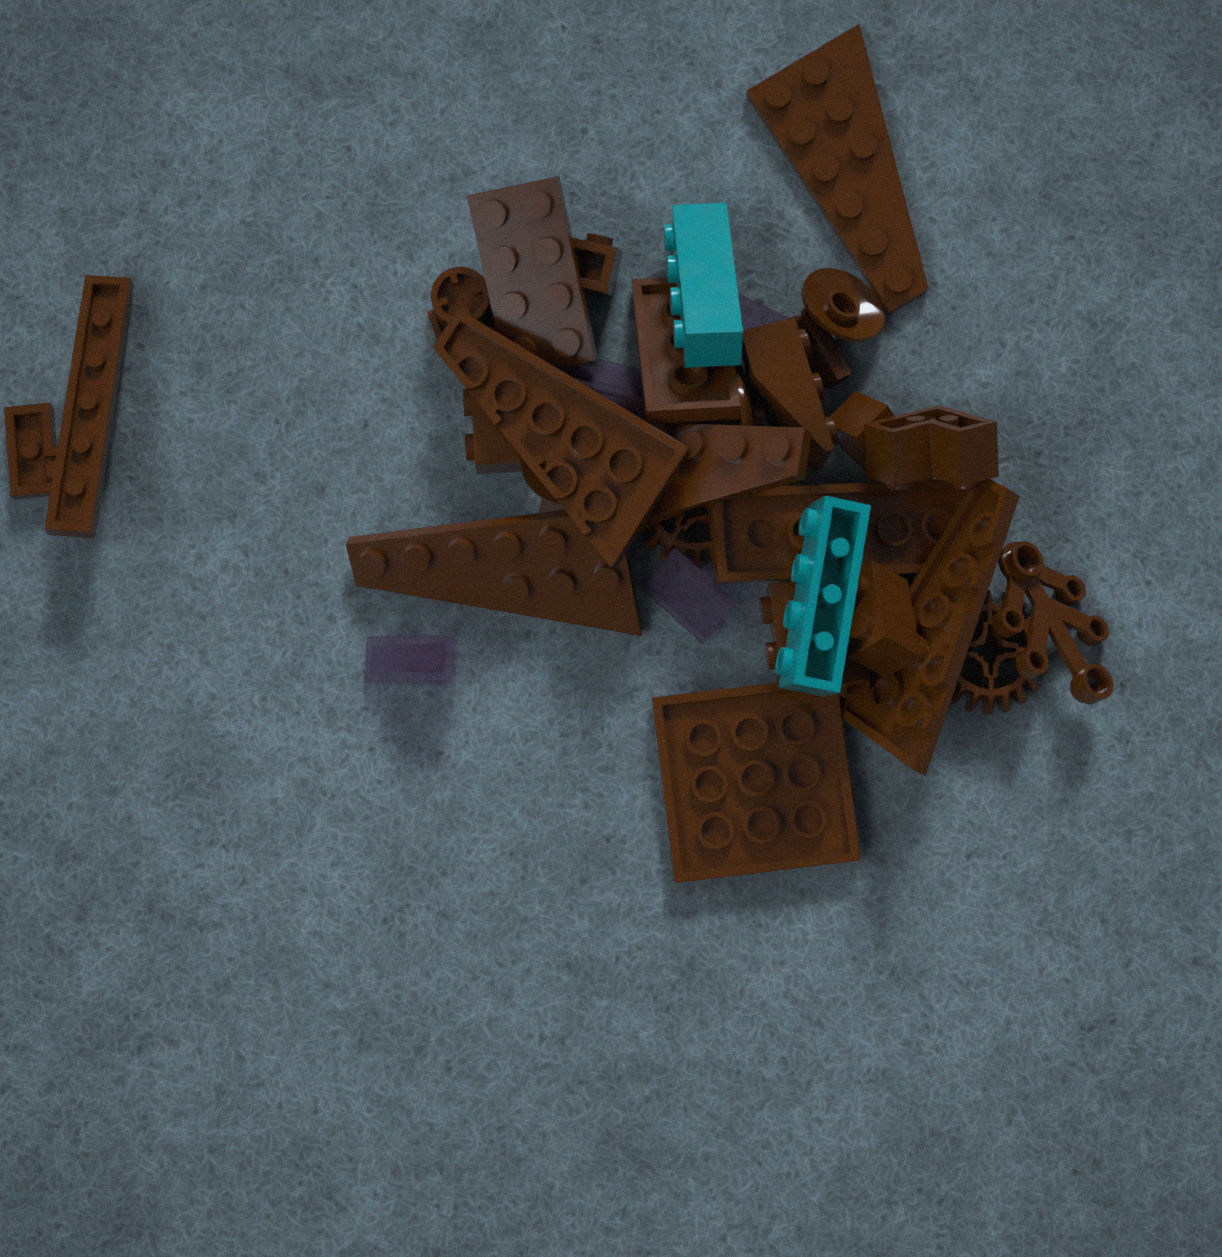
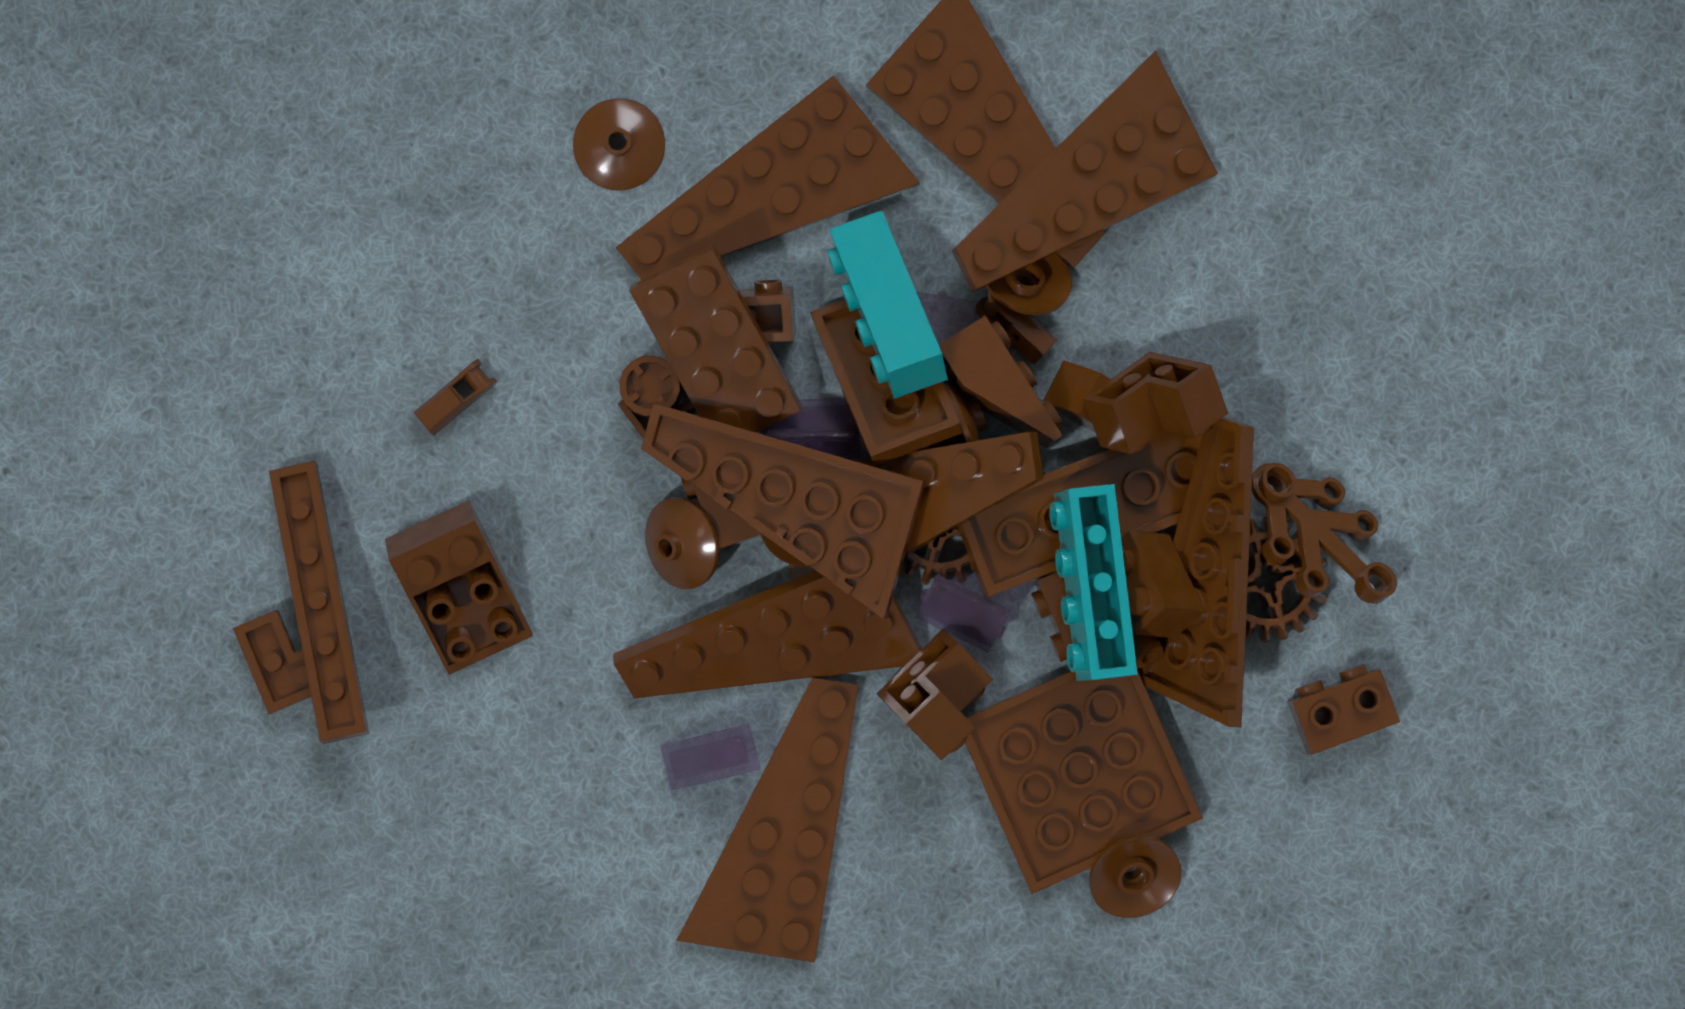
camera: 20 degrees left, 5 degrees up
(224, 434) = (457, 587): none -> reddish brown slope
(271, 265) = (448, 403): none -> reddish brown bar
(443, 777) = (777, 862): none -> reddish brown wing
(445, 452) = (682, 542): none -> reddish brown dish
(503, 100) = (623, 167): none -> reddish brown dish
(640, 661) = (934, 691): none -> reddish brown brick
(648, 154) = (789, 176): none -> reddish brown wing
(783, 912) = (1137, 891): none -> reddish brown dish
(948, 230) = (1111, 167): none -> reddish brown wing
(1025, 797) = (1342, 710): none -> reddish brown brick

